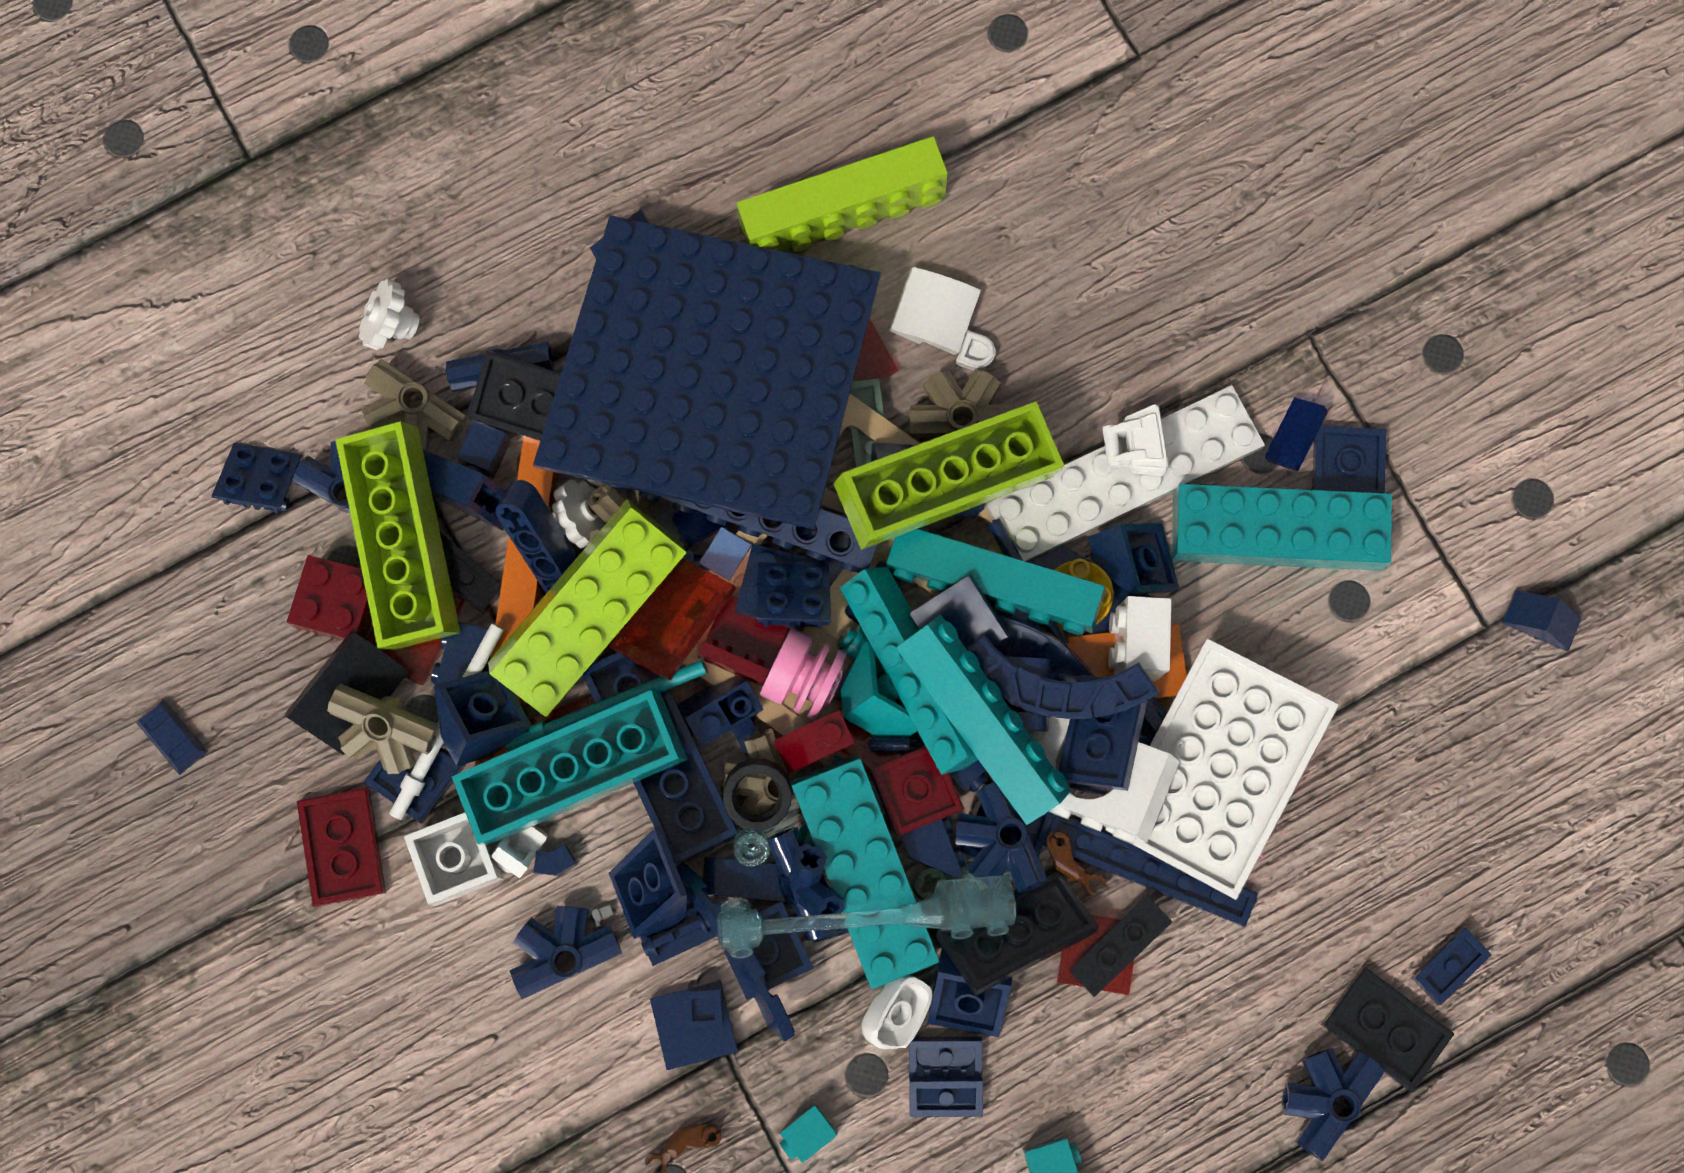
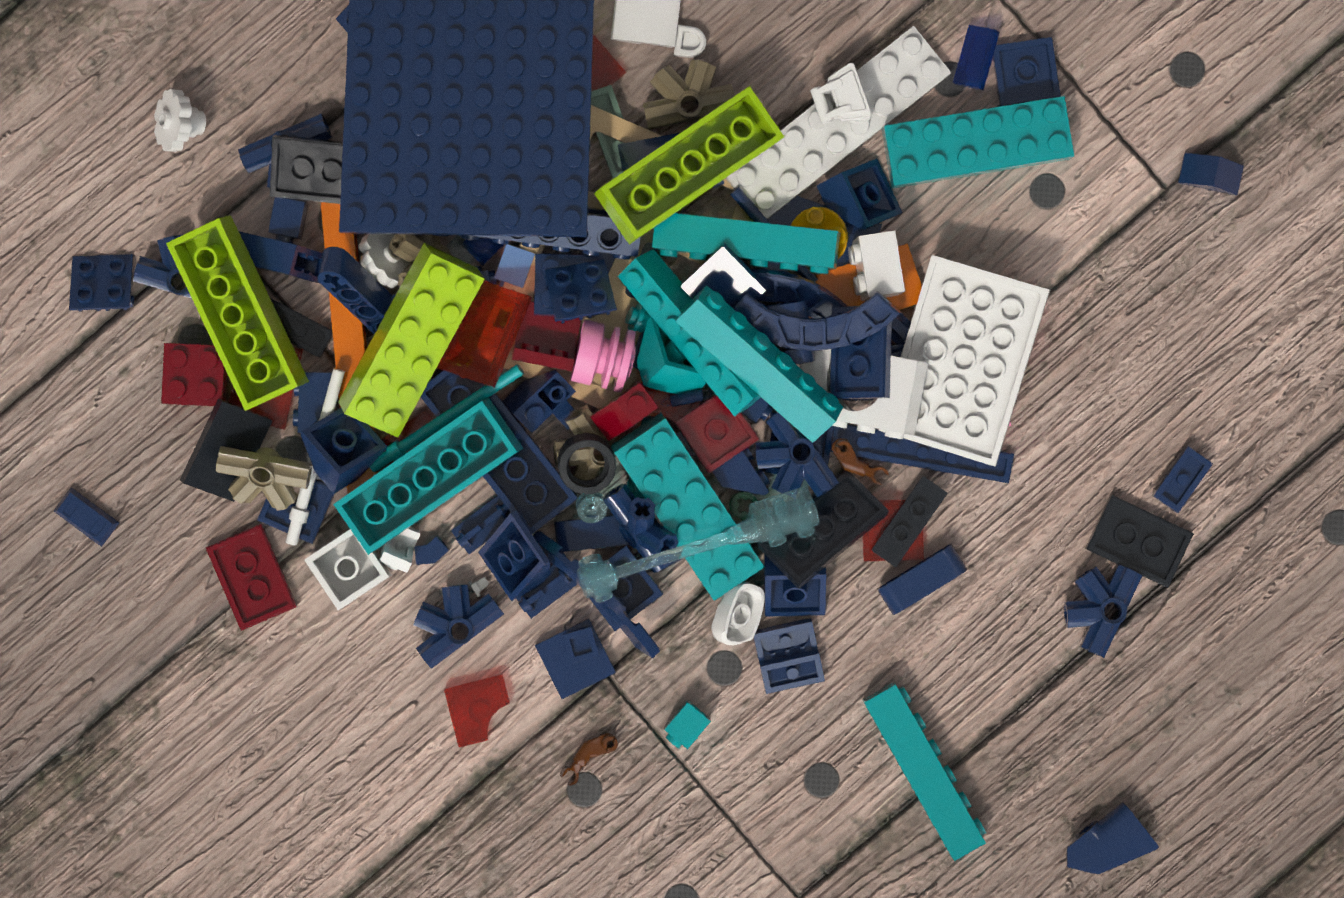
camera: 20 degrees left, 10 degrees up
(395, 407) = (206, 201): dark tan piece -> none
(561, 1056) = (473, 706): none -> clear red tile
(612, 846) = (481, 525): none -> dark blue hinge
(1122, 1018) = (922, 579): none -> dark blue beam

